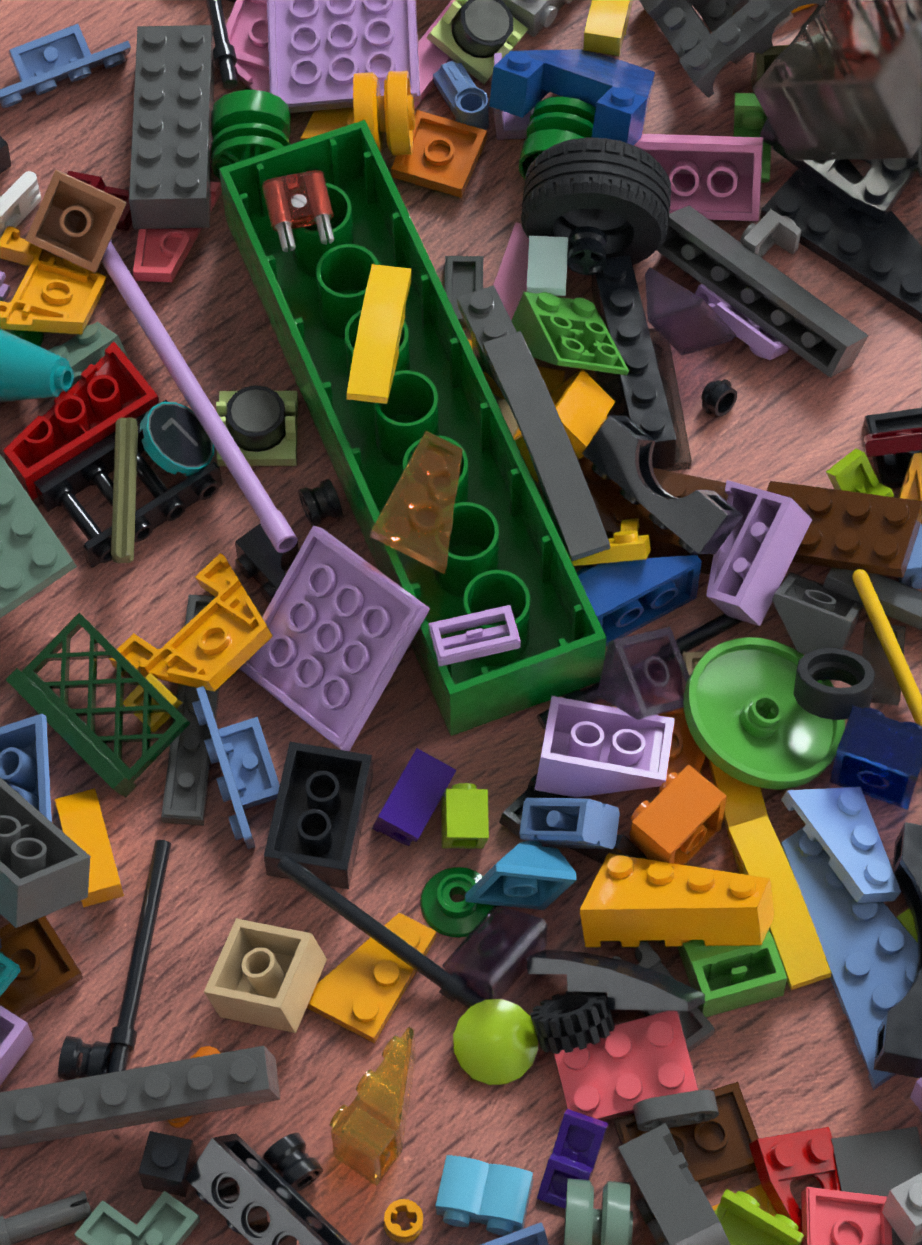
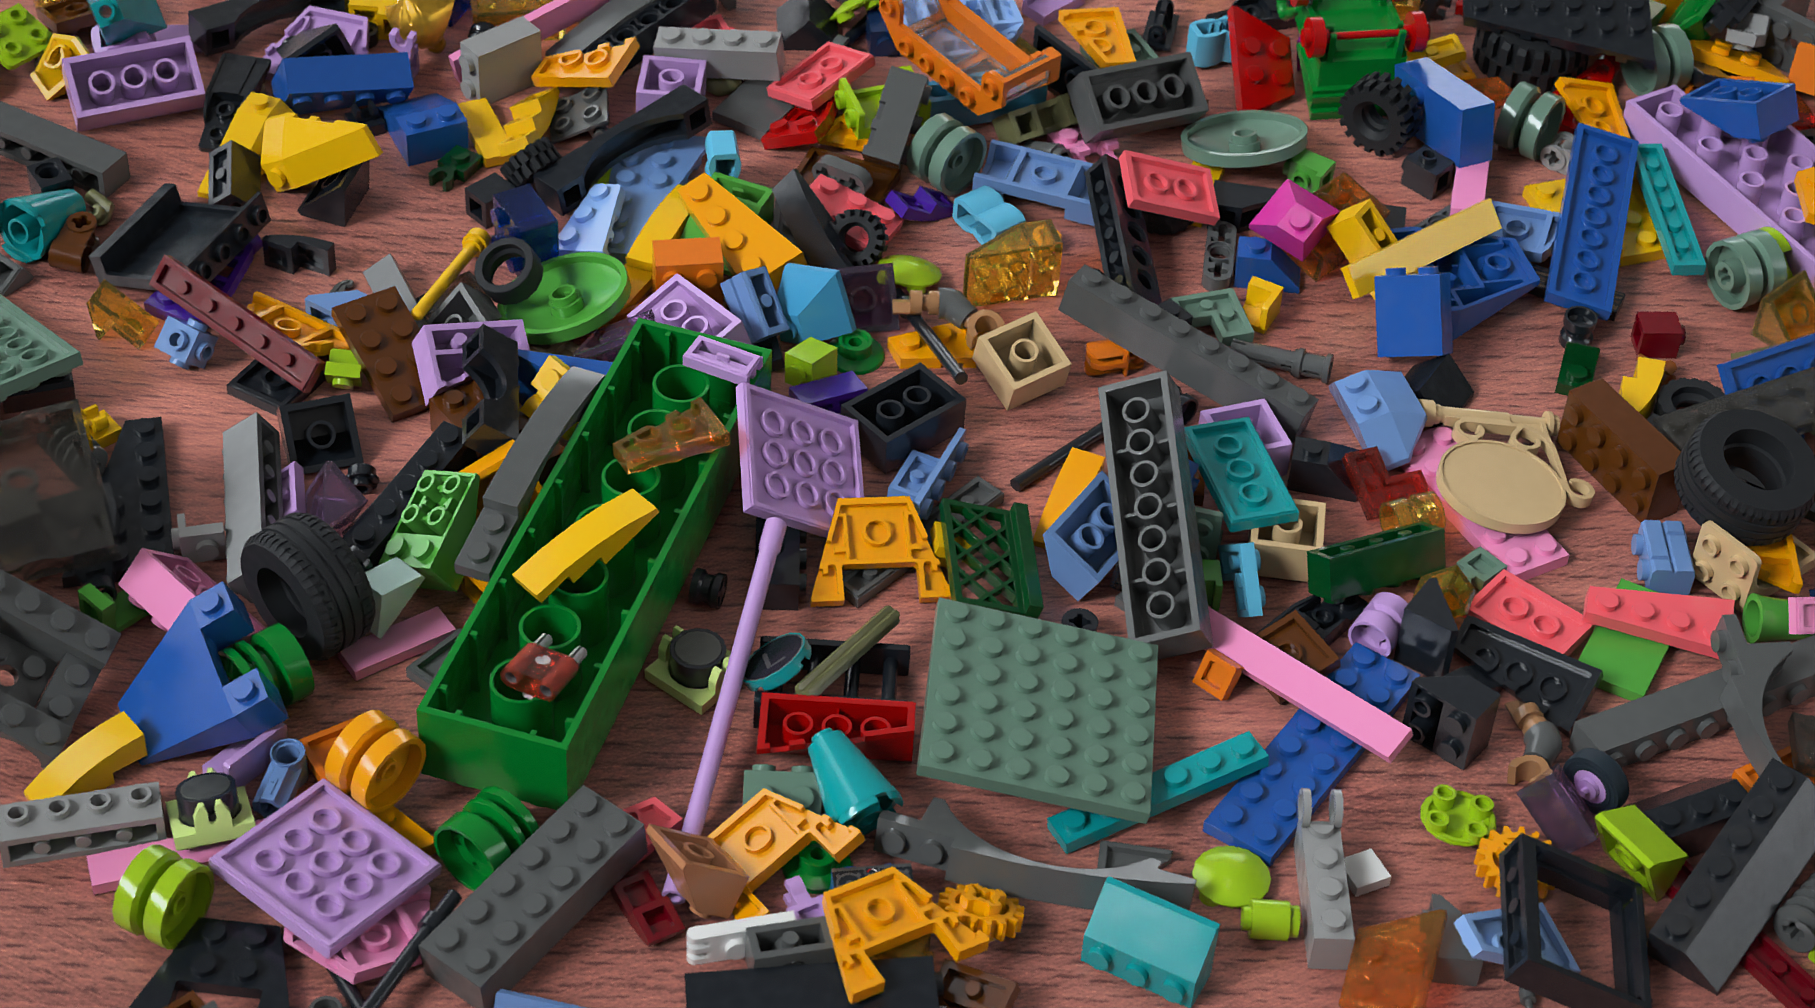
camera: 145 degrees left, 20 degrees down
(383, 986) = (953, 307): none -> medium nougat piece
(799, 1012) = (722, 153): none -> medium azure brick
(804, 409) = (320, 432): none -> black slope

